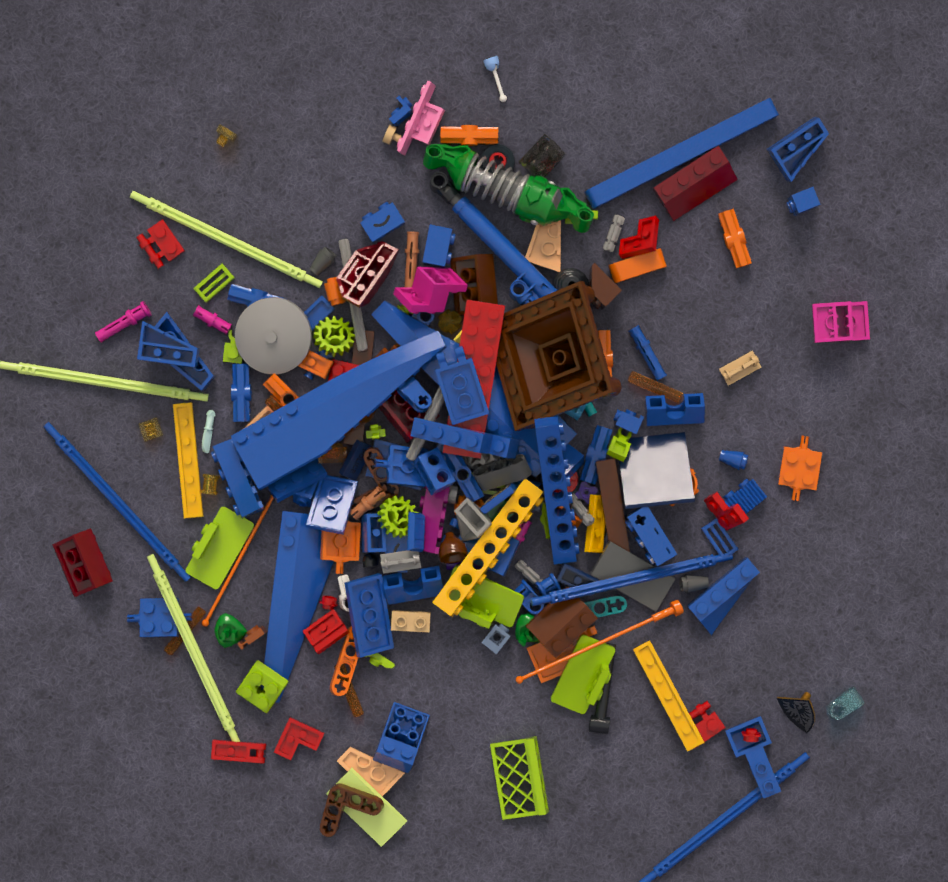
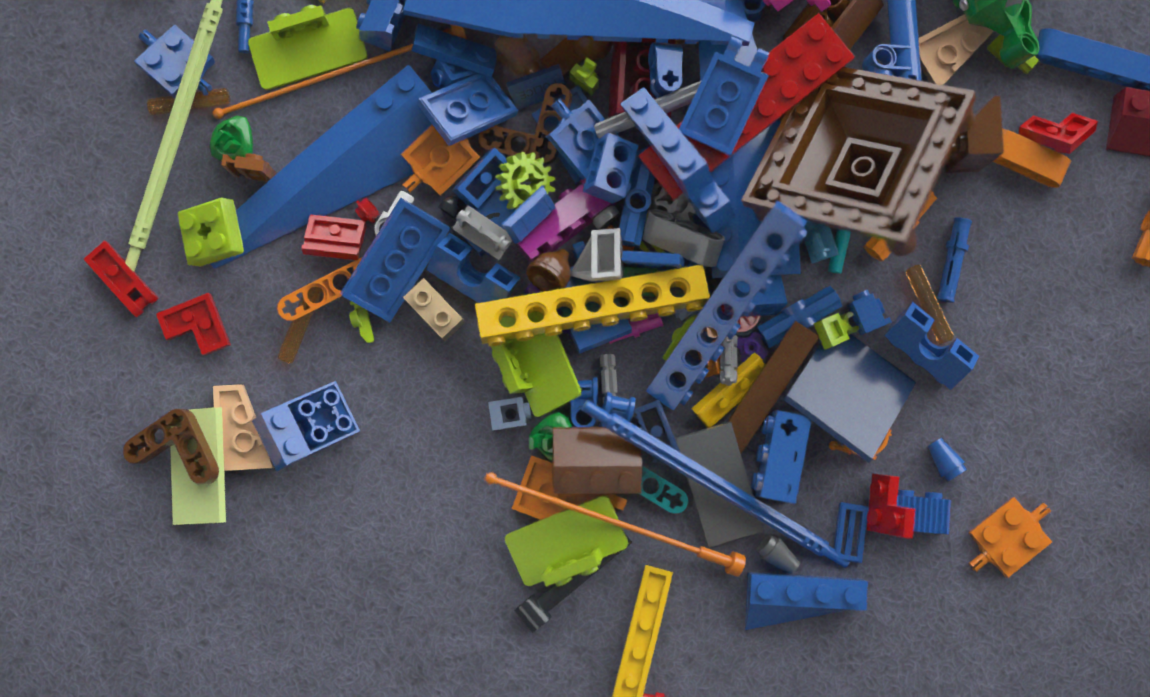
camera: 45 degrees right, 5 degrees down
(367, 503) = (506, 140): nougat pin -> none
(449, 321) = (771, 33): clear yellow gear -> none
(536, 778) = (411, 604): lime fence -> none
(613, 233) = (1031, 102): light grey axle -> none
(740, 368) = (1041, 368): tan hinge -> none

